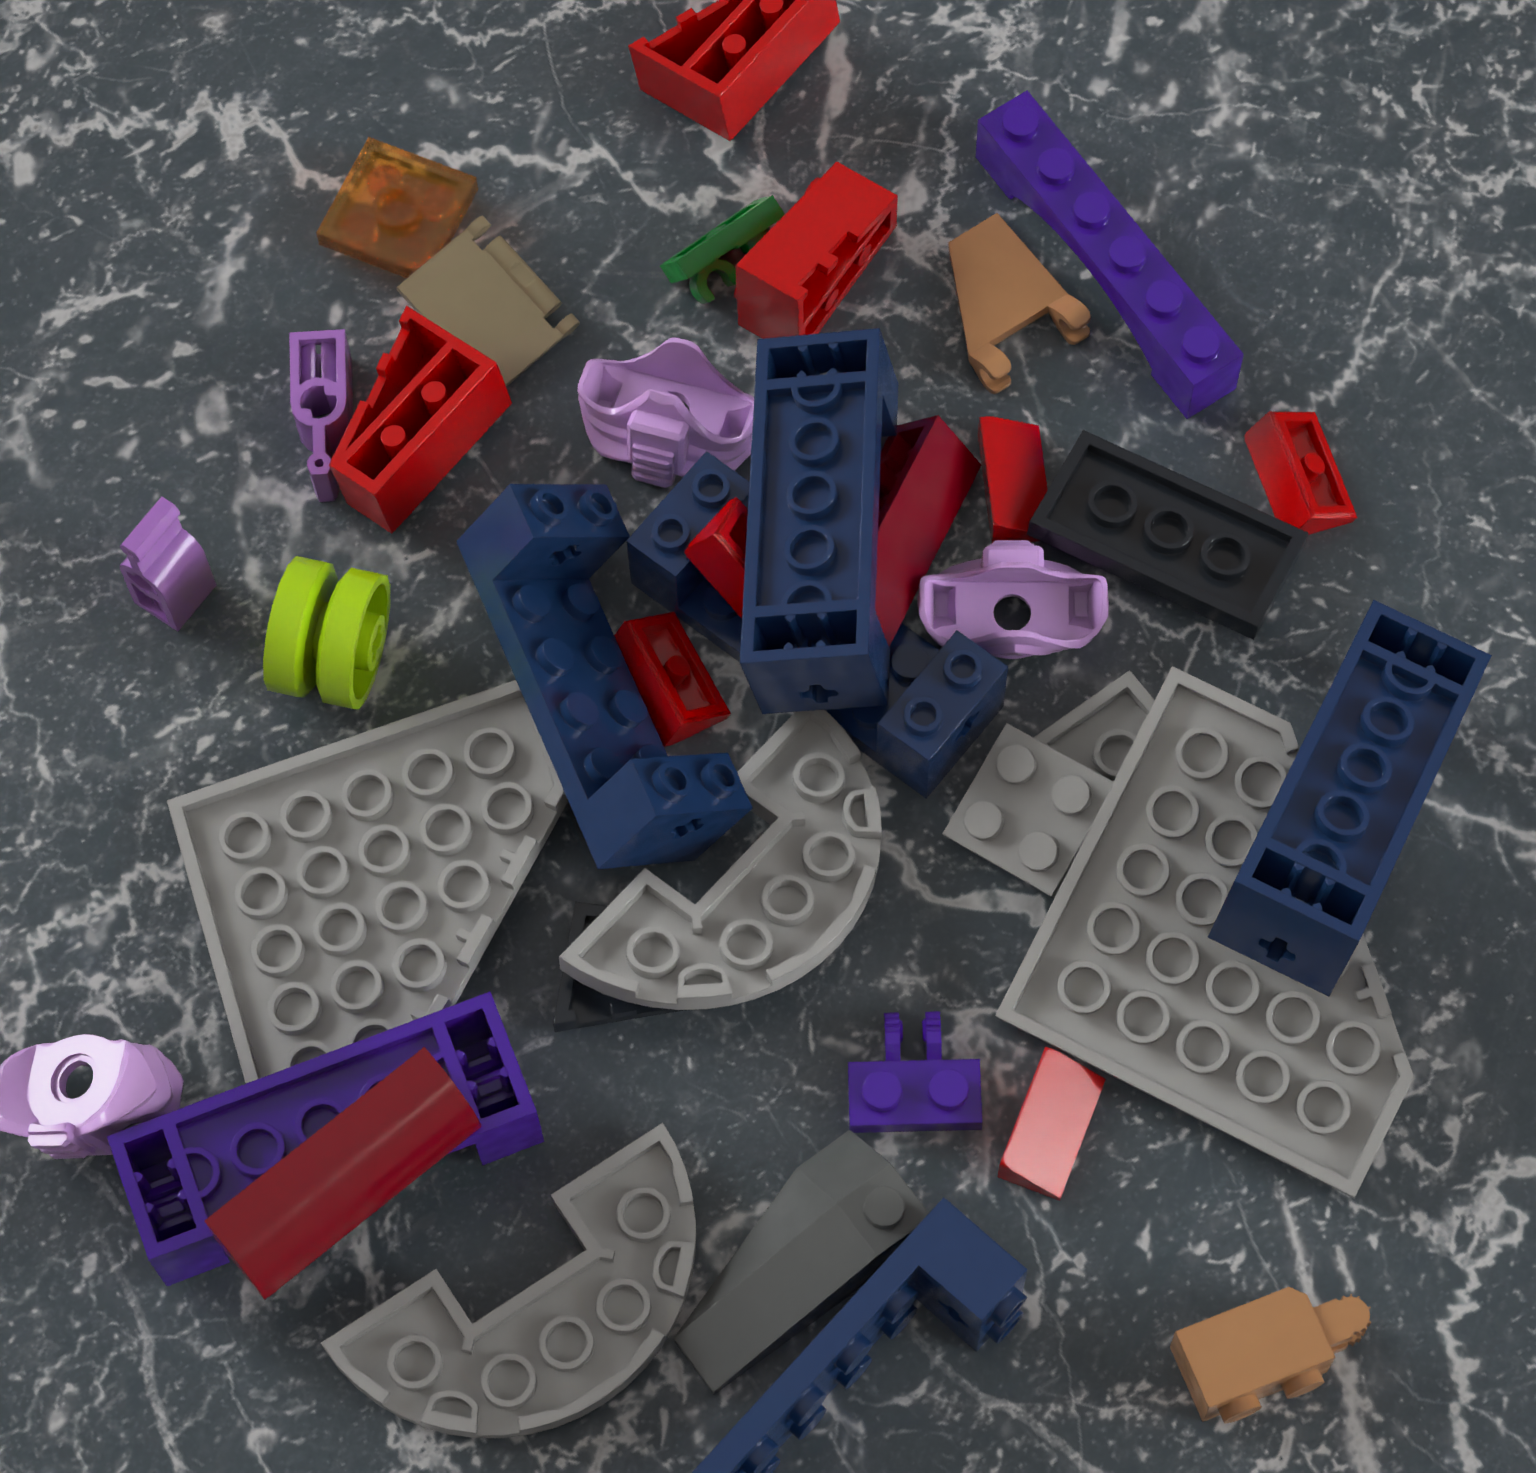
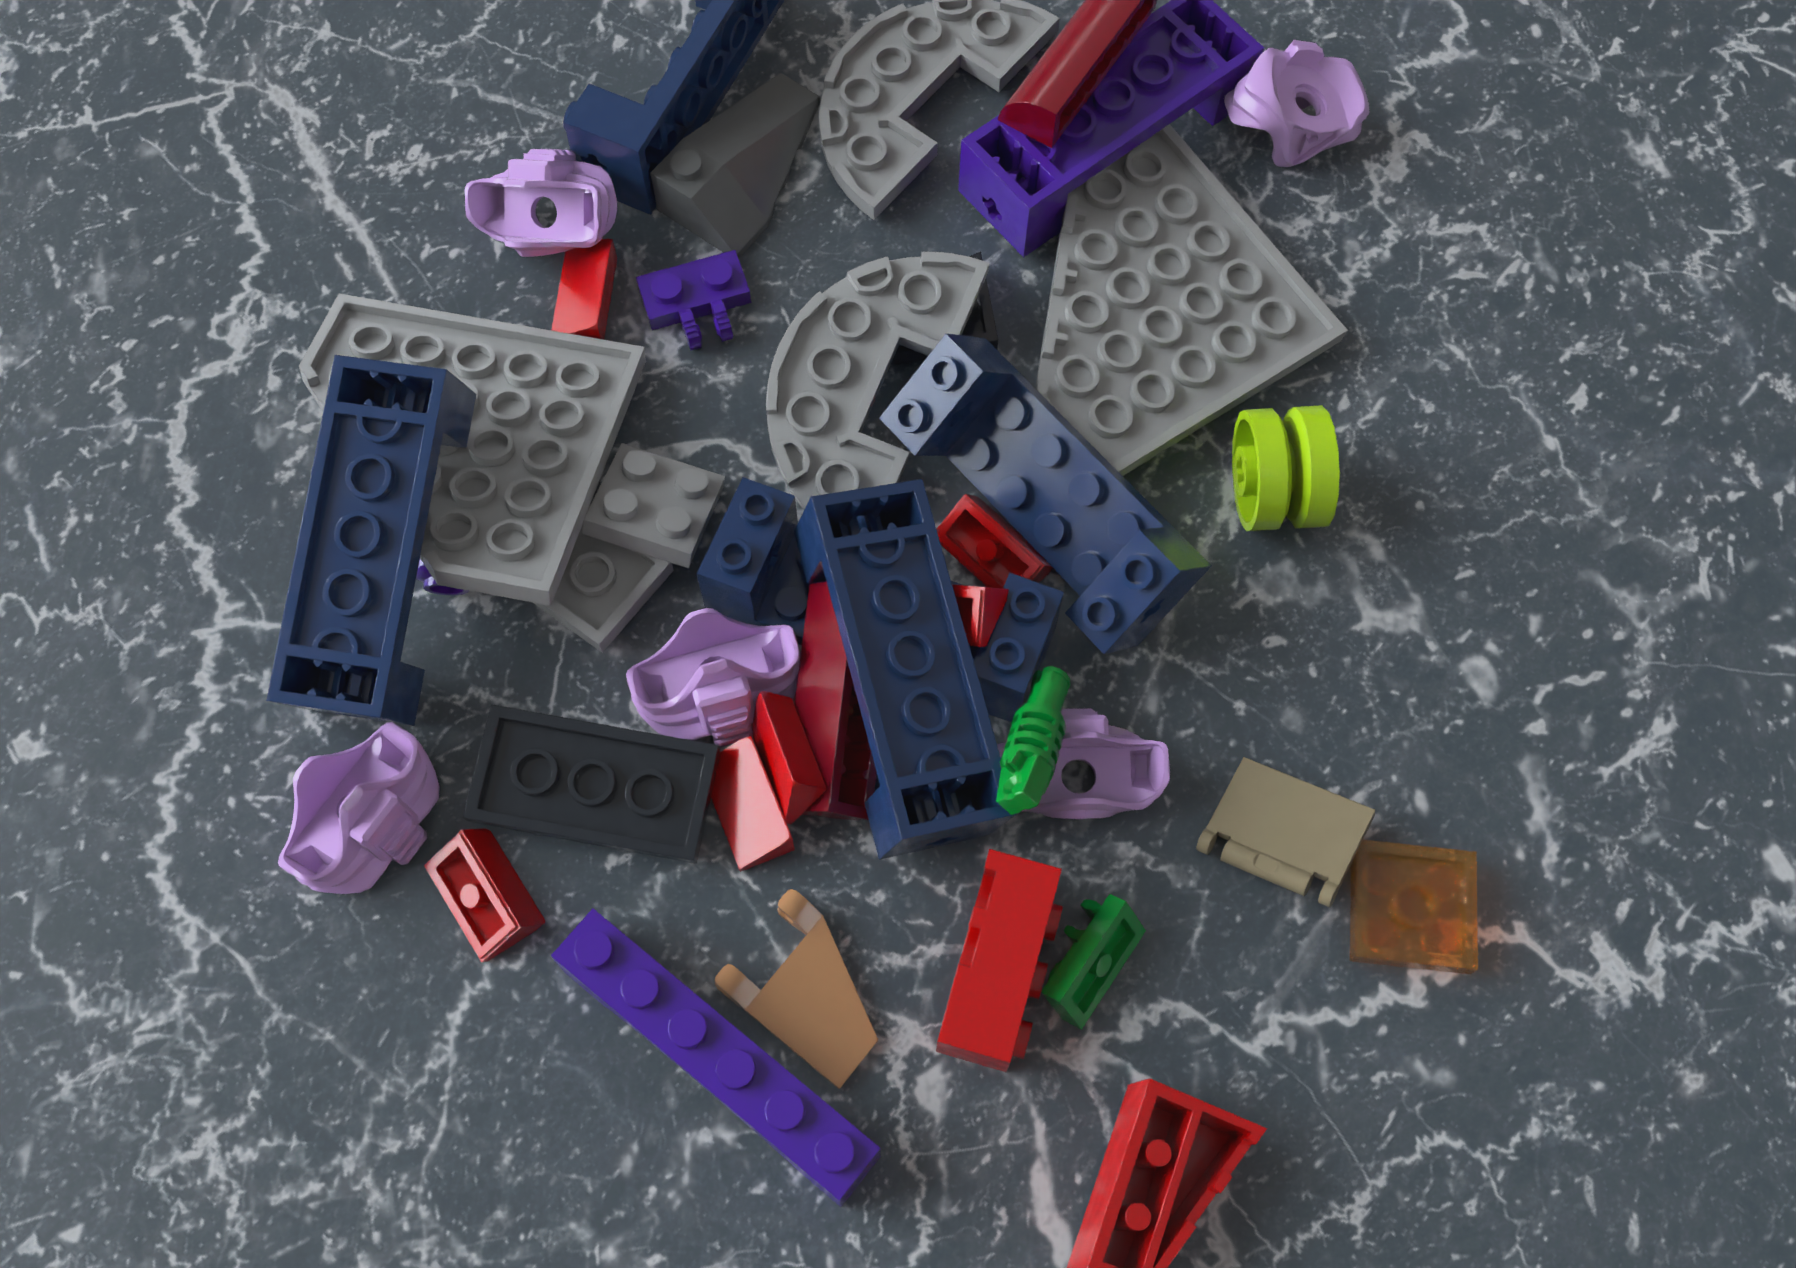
camera: 160 degrees right, 0 degrees up
(166, 566) = (1444, 485): medium lavender piece -> none
(318, 396) = (1389, 689): medium lavender piece -> none
(417, 422) = (1297, 689): red wedge -> none
(716, 394) = (1034, 742): none -> green hinge
(961, 492) = (786, 754): none -> red slope
(1075, 1229) = (508, 201): none -> lavender piece
(1264, 1350) = (389, 182): medium nougat hinge -> none
(1453, 540) = (359, 812): none -> lavender piece

